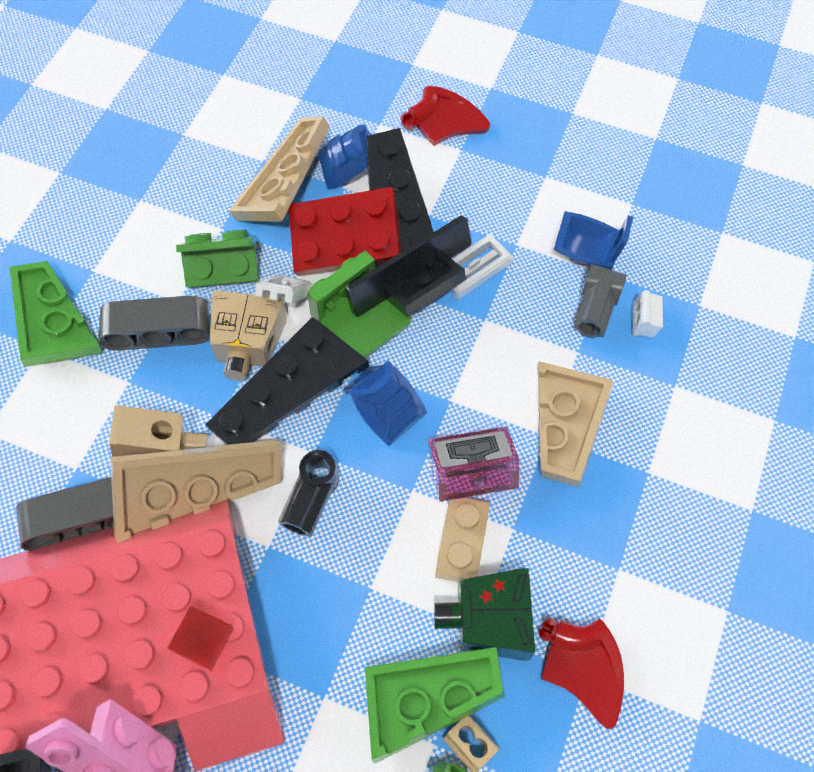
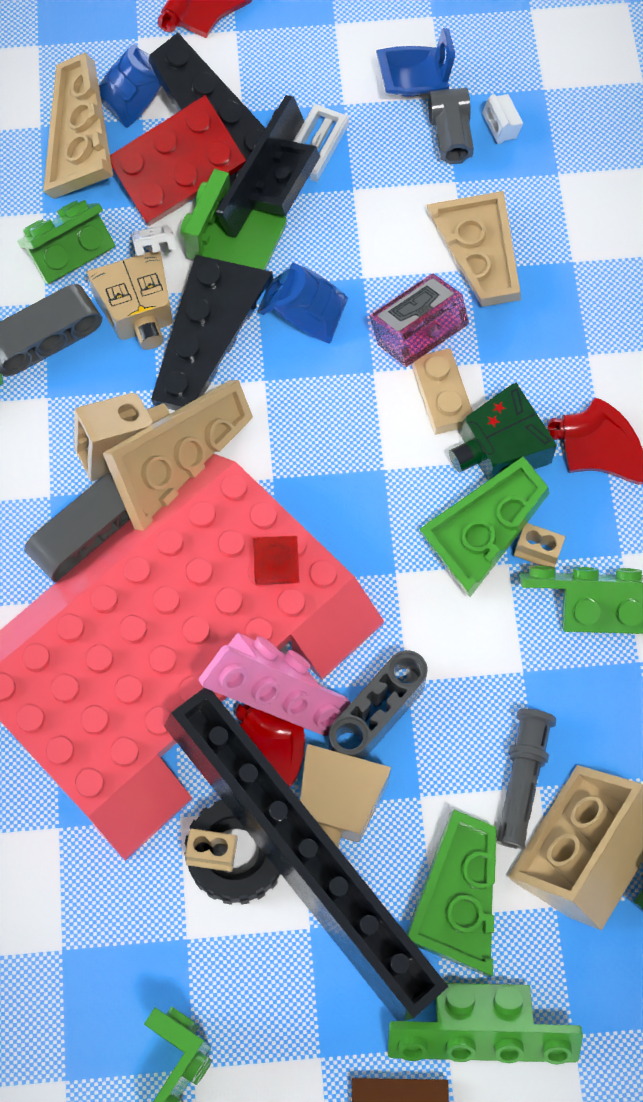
camera: 25 degrees left, 5 degrees up
(309, 495) = (287, 413): black piece -> none

